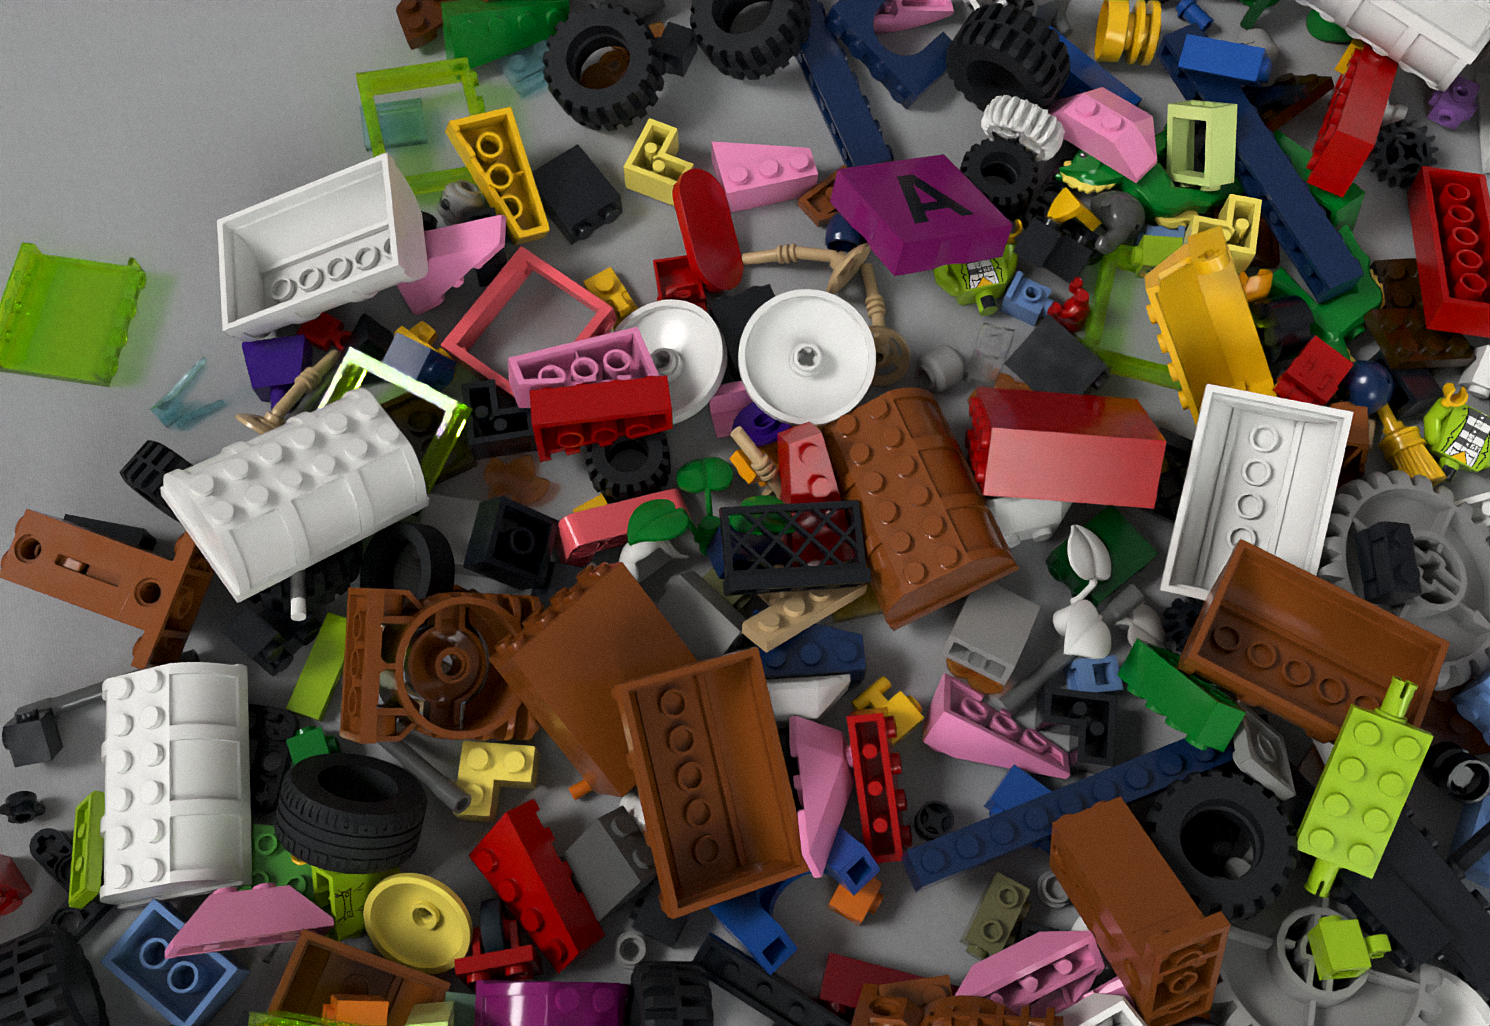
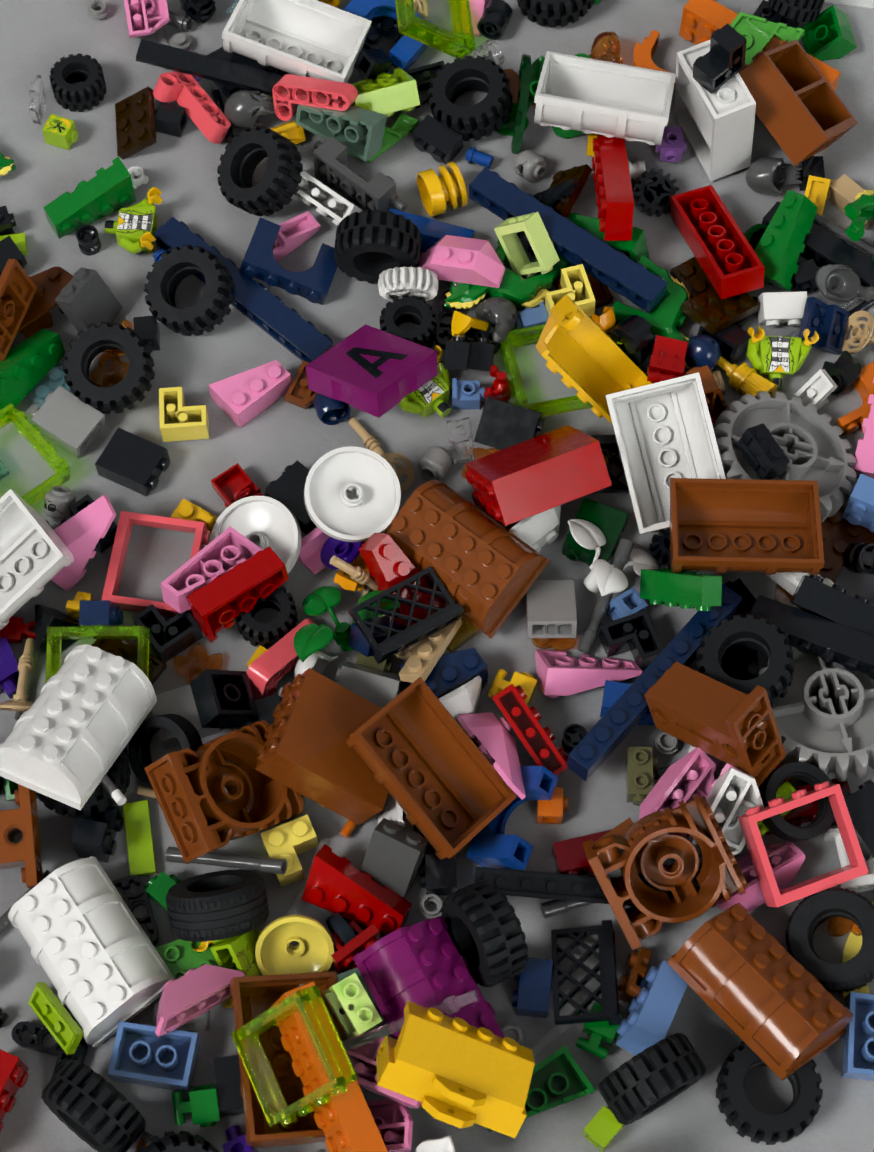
camera: 25 degrees left, 5 degrees down
(499, 165) = (79, 466): yellow wedge -> none
(535, 110) = (68, 421): none -> light grey brick
(708, 230) = (238, 444): red tile -> none
(844, 265) = (338, 426): tan dish -> none
(1152, 252) = (532, 328): lime brick -> none
(1226, 59) = (516, 185): blue arch -> none
(1262, 754) = (744, 597): light grey hinge -> none
(1342, 950) = (841, 684): lime brick -> none
(1362, 788) = (807, 587): lime plate -> none

